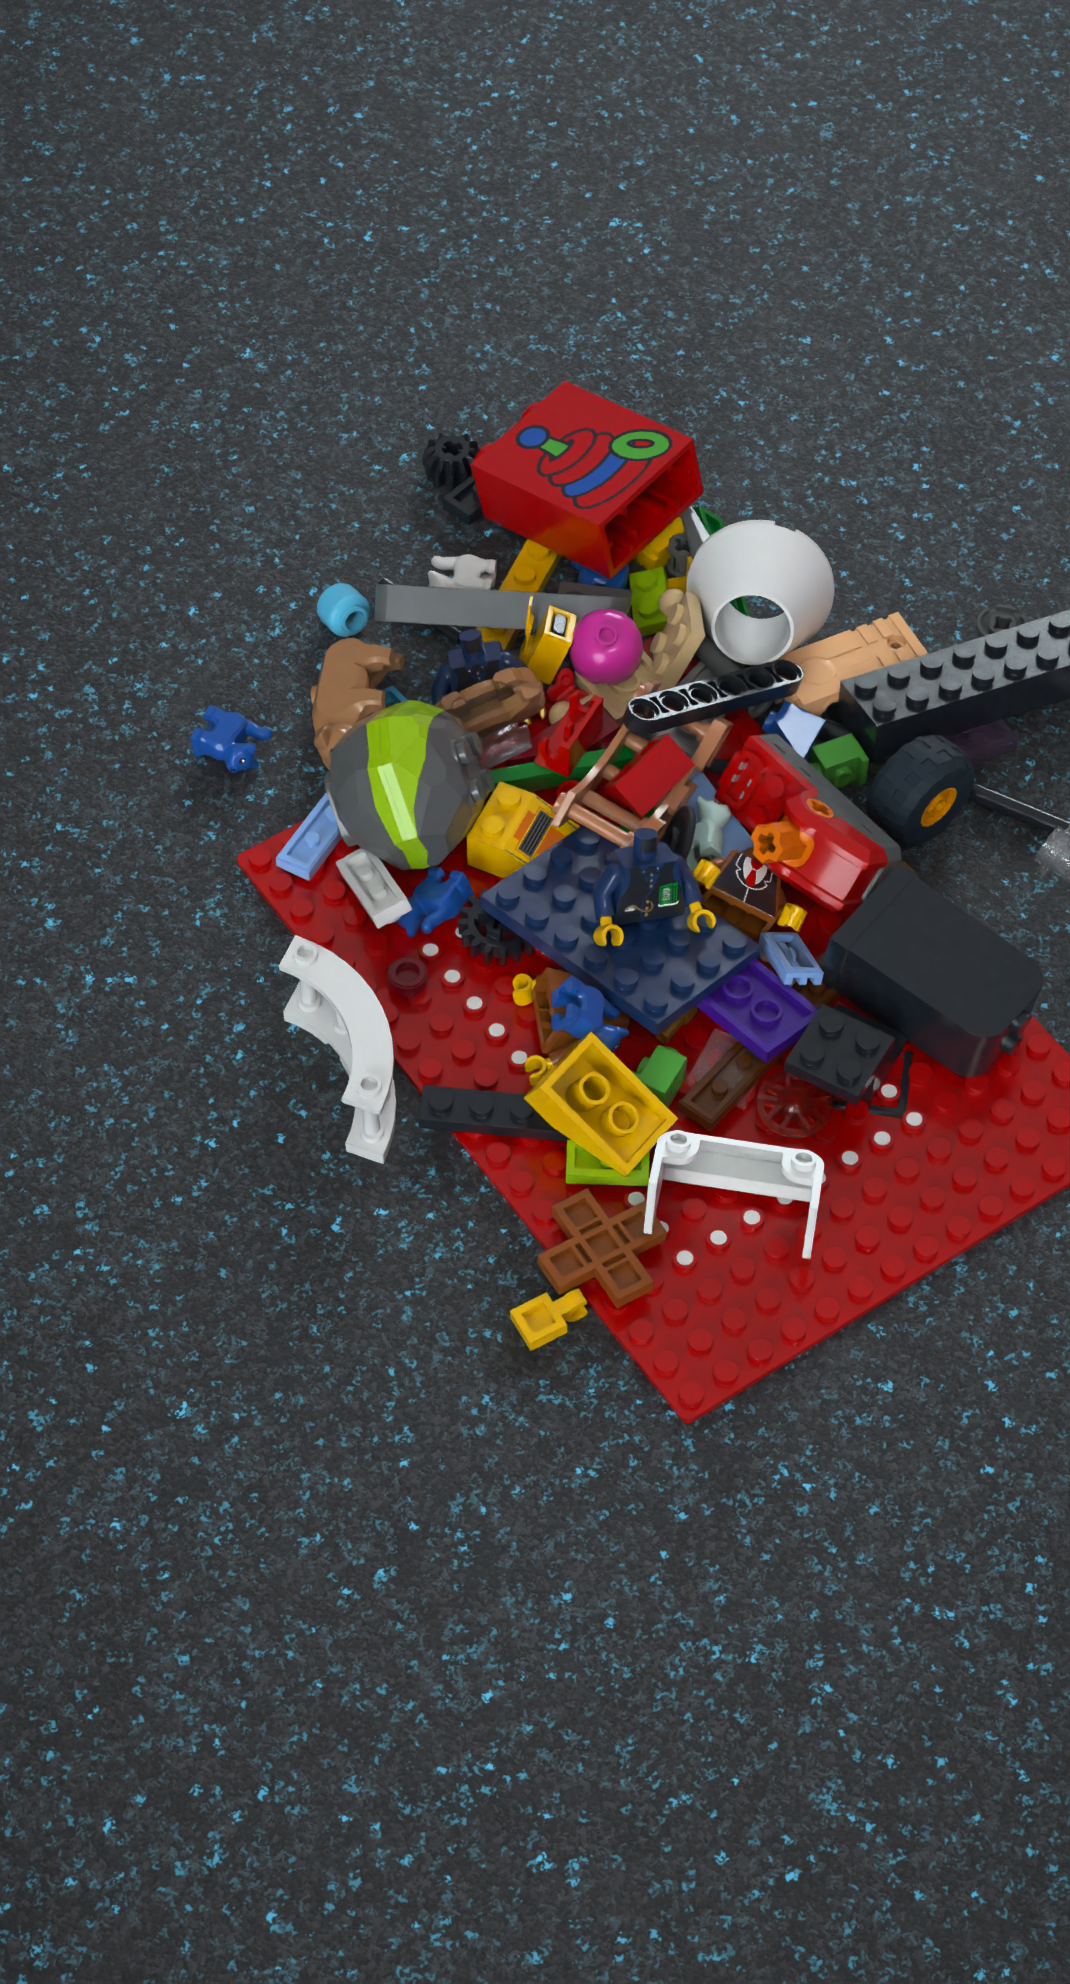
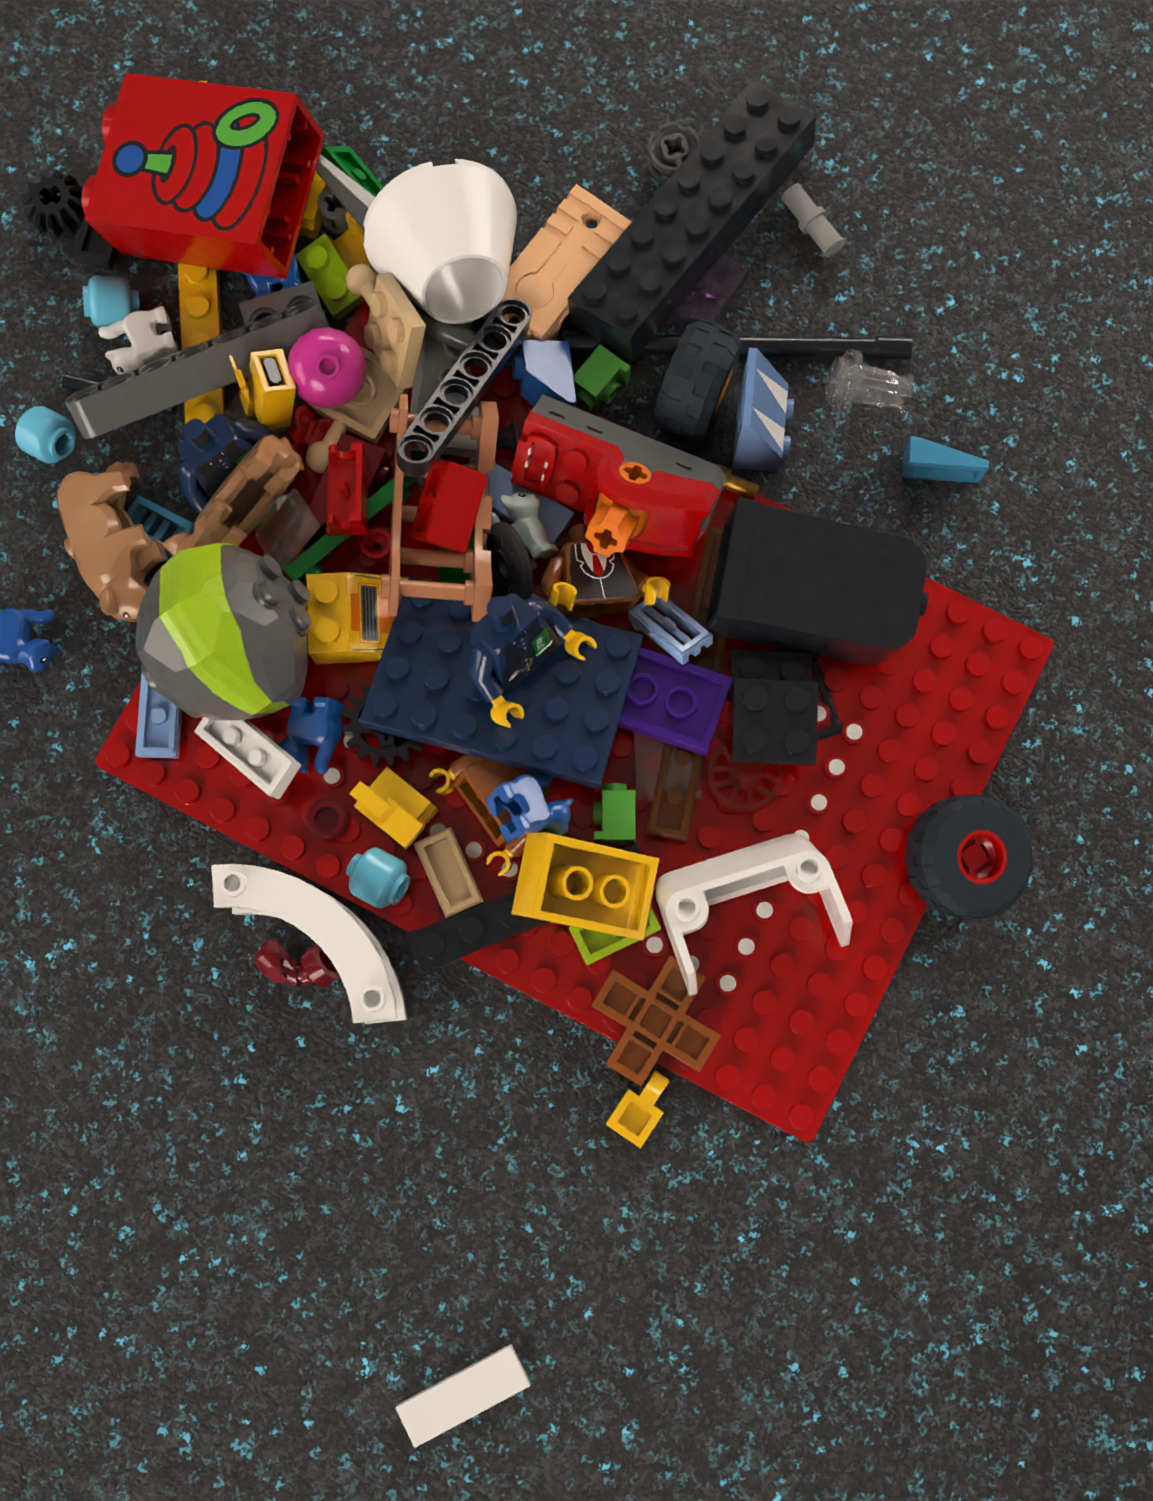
camera: 25 degrees left, 25 degrees up
(254, 1467) = (462, 1395): none -> white tile
(329, 1081) = (282, 968): none -> dark red arm
(425, 1030) = (378, 878): none -> medium azure head
(454, 538) = (109, 299): none -> medium azure head
(469, 987) = (394, 807): none -> yellow piece
(487, 1057) = (448, 872): none -> tan tile
(961, 1247) = (969, 856): none -> black wheel
(962, 837) = (761, 417): none -> medium blue slope

